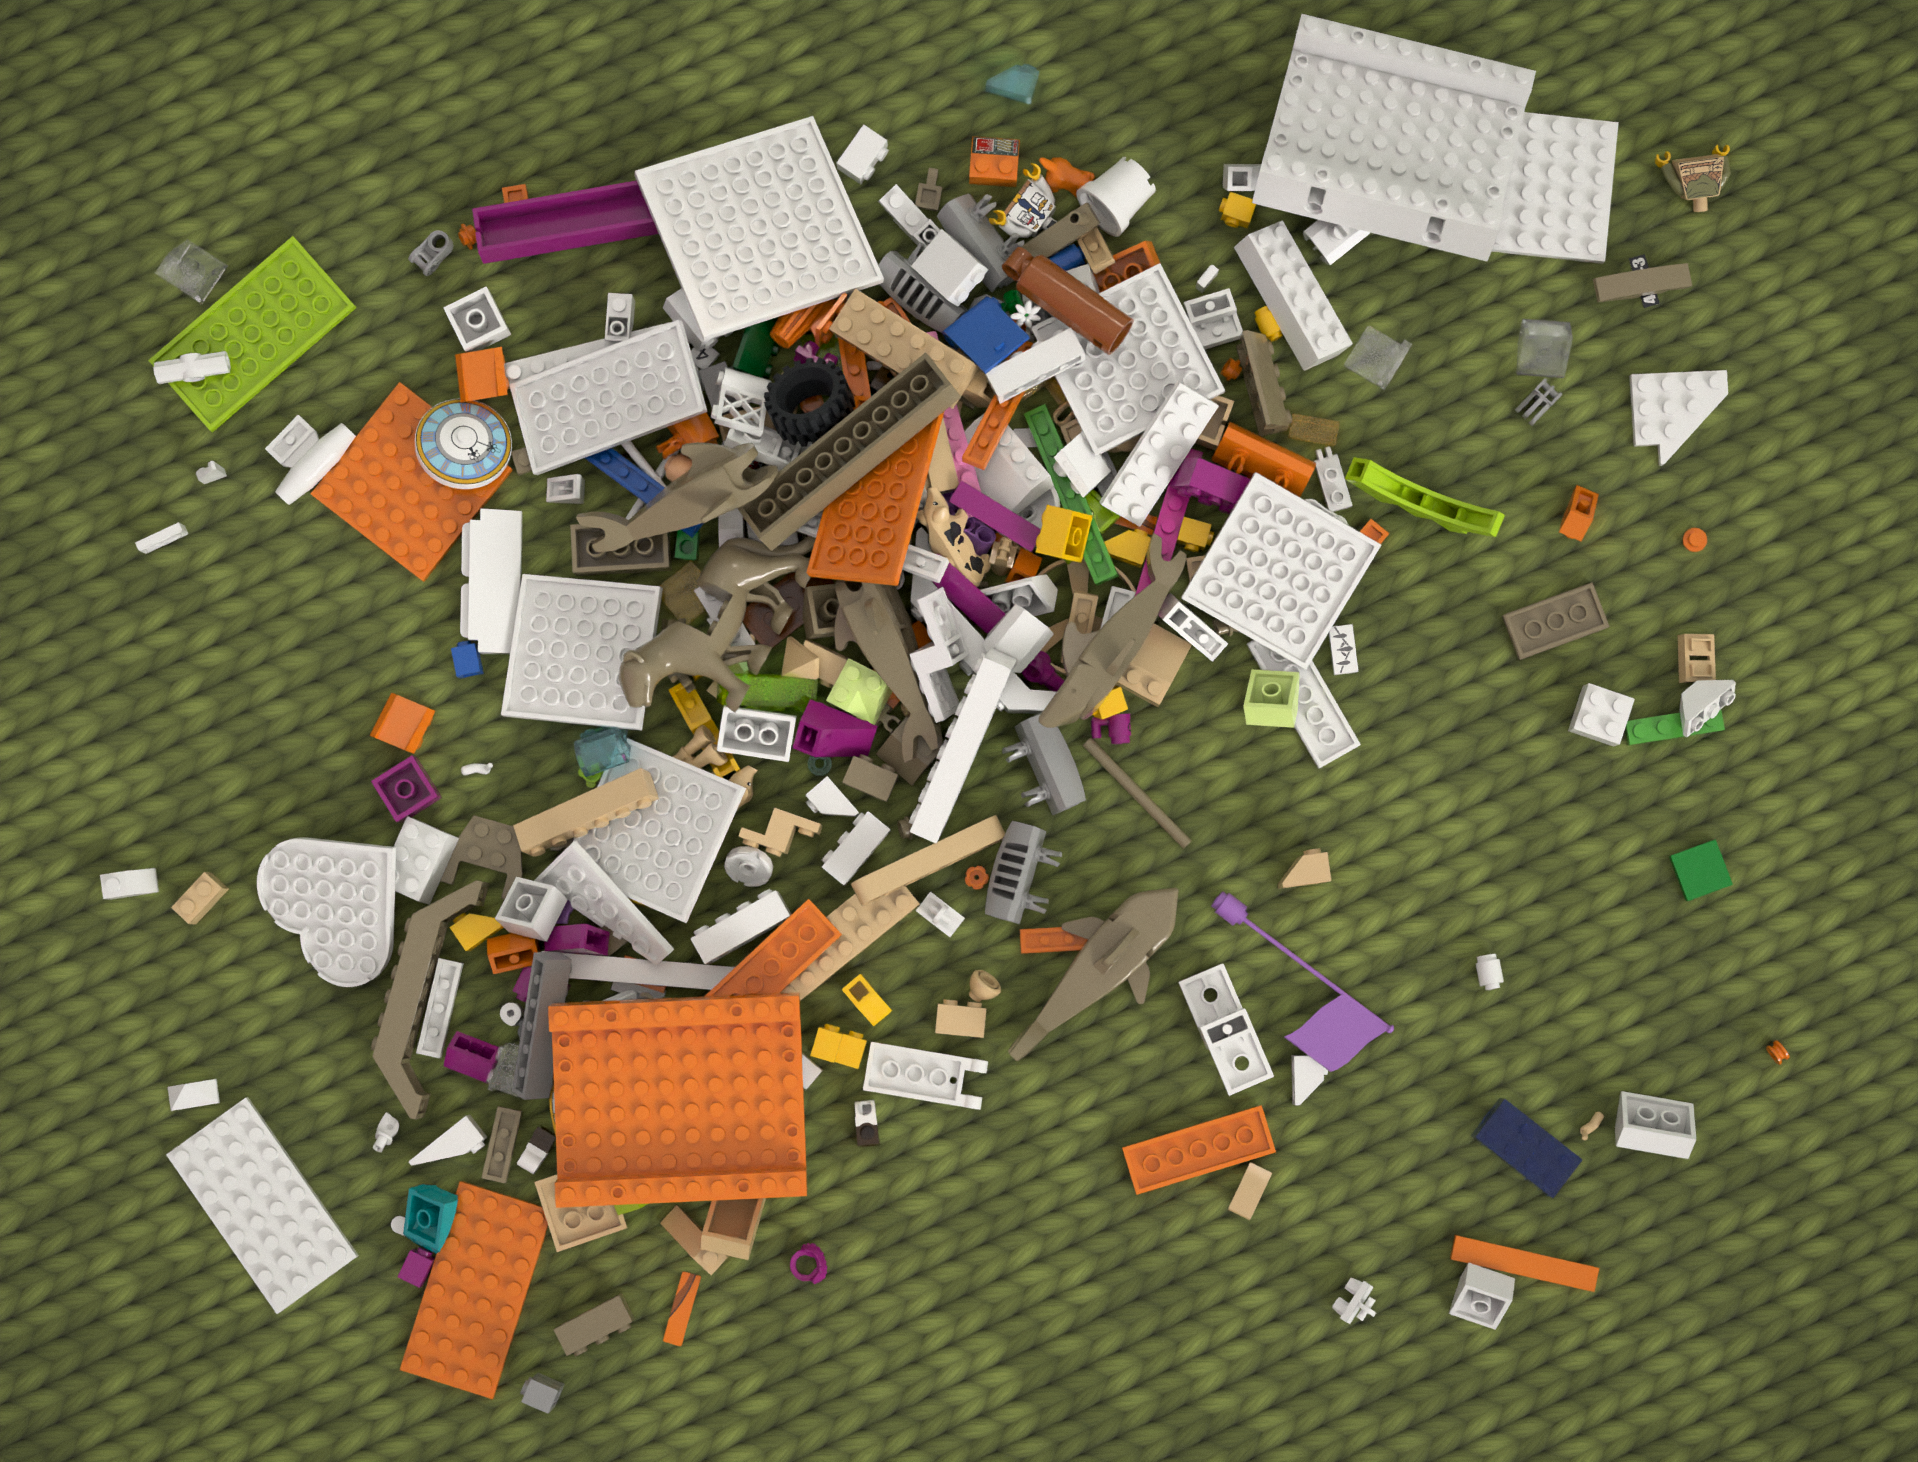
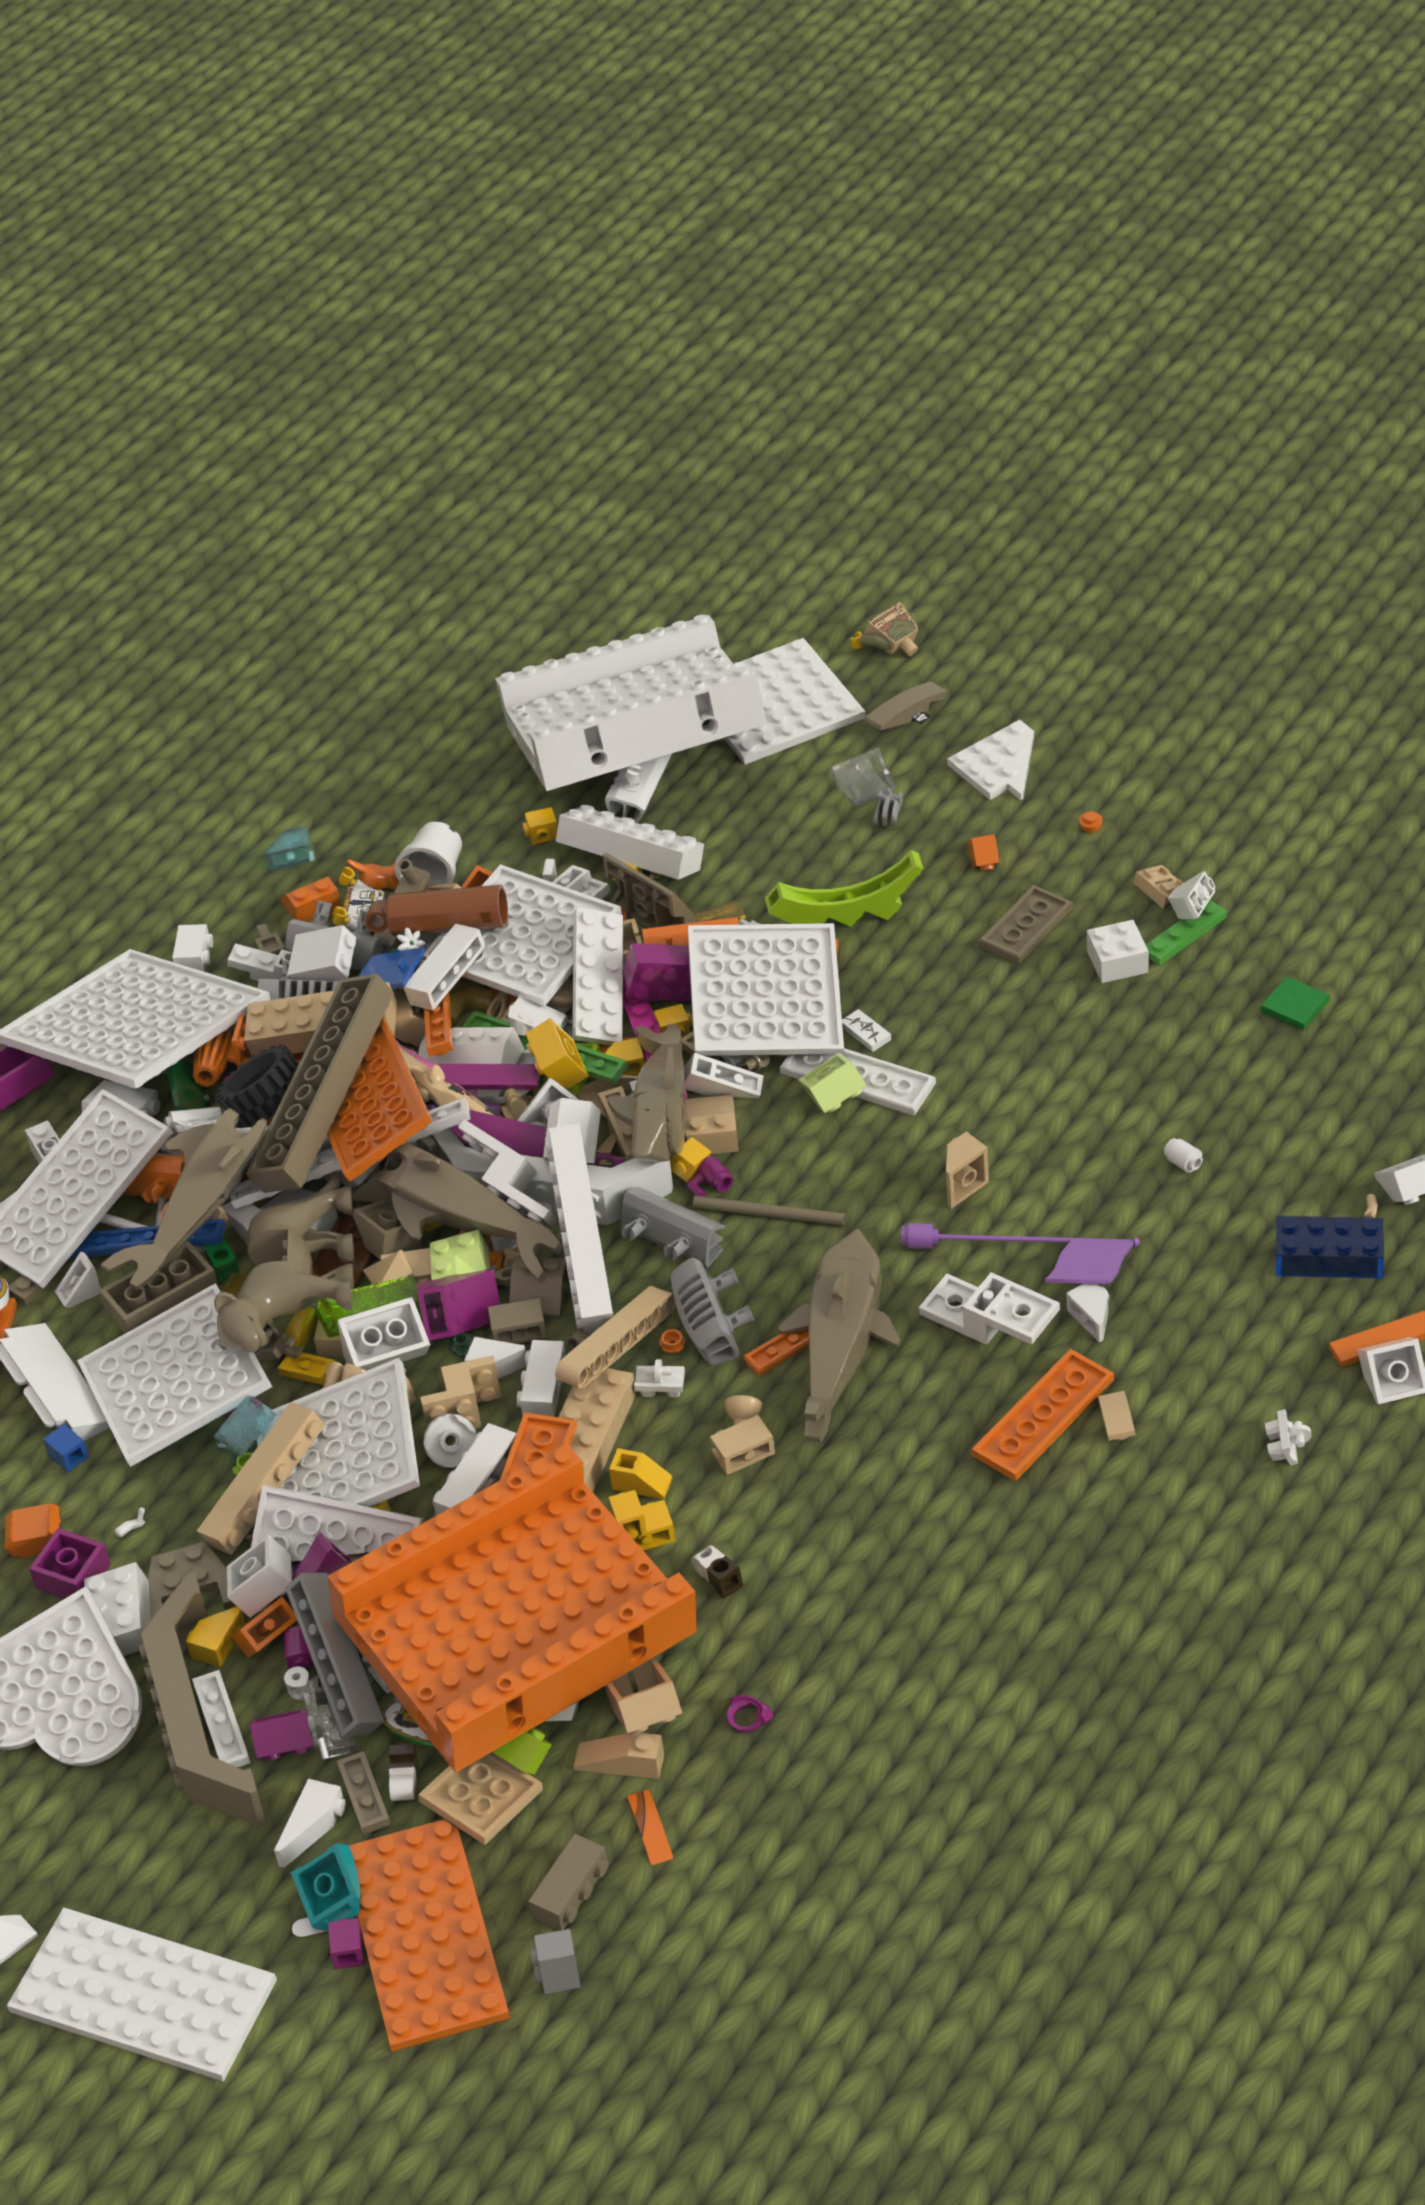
camera: 30 degrees left, 40 degrees down
(385, 1131) = (234, 1853): white piece -> none
(920, 1074) = (740, 1504): white hinge -> none
(1240, 177) = (528, 799): white slope -> none
(1377, 357) = (733, 850): clear bracket -> none

